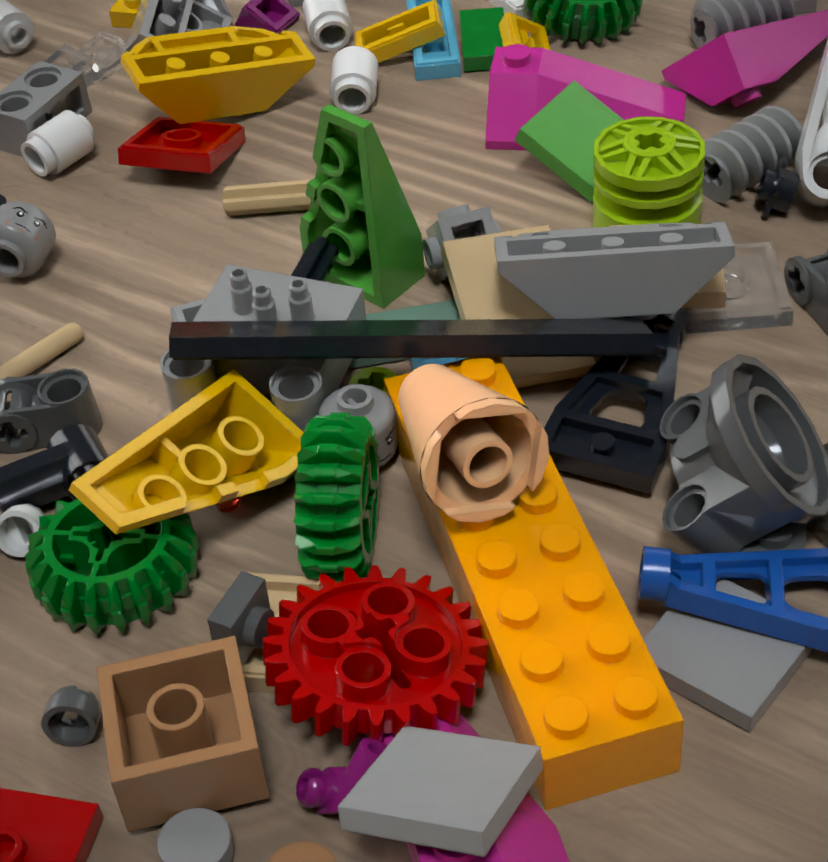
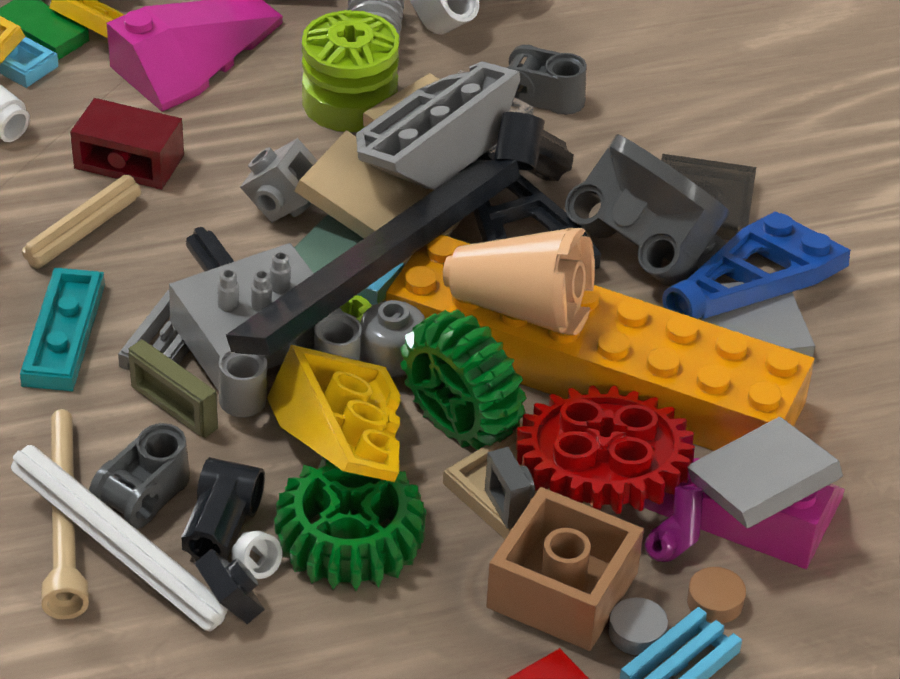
camera: 55 degrees left, 0 degrees up
(69, 731) = (467, 622): dark grey hinge -> none
(152, 346) = (173, 388): none -> olive tile
(171, 268) = (62, 329): none -> teal tile
(361, 210) = (215, 187): bright green wedge -> none
(414, 151) = (127, 141): none -> dark red brick
(565, 135) = (250, 65): bright green tile -> none
(697, 330) = (536, 150): none -> black piece
(777, 188) = (421, 31): black plate -> none

